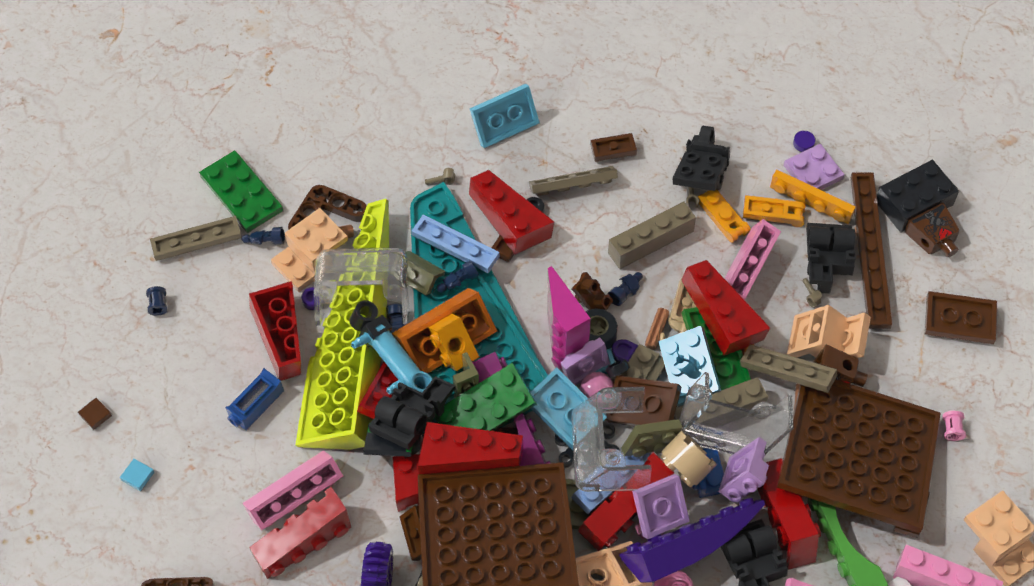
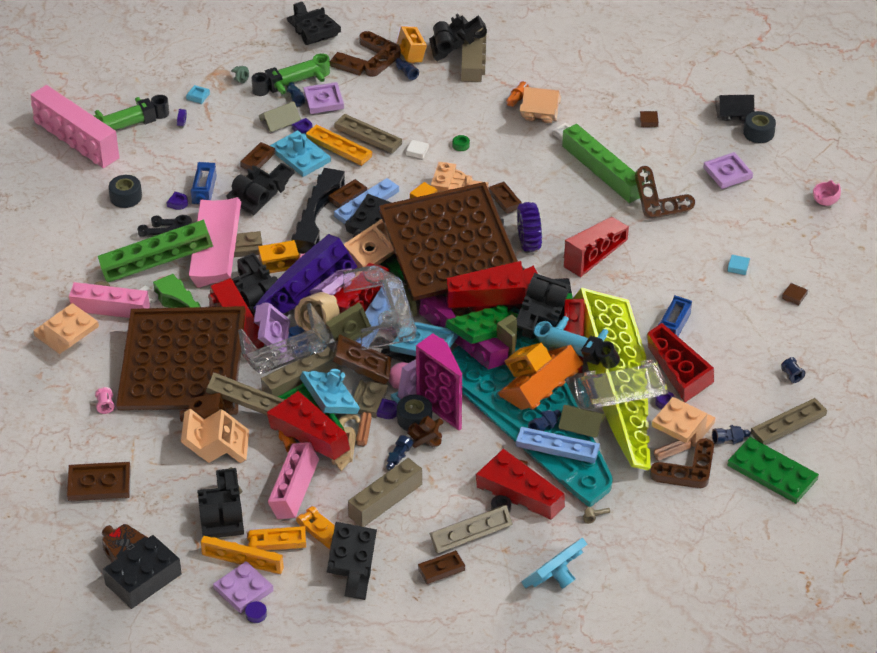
camera: 165 degrees right, 15 degrees down
(292, 490) = (615, 266): bright pink brick -> none
(617, 368) = (389, 385): black tile -> none
(871, 250) = (183, 524): reddish brown plate -> none

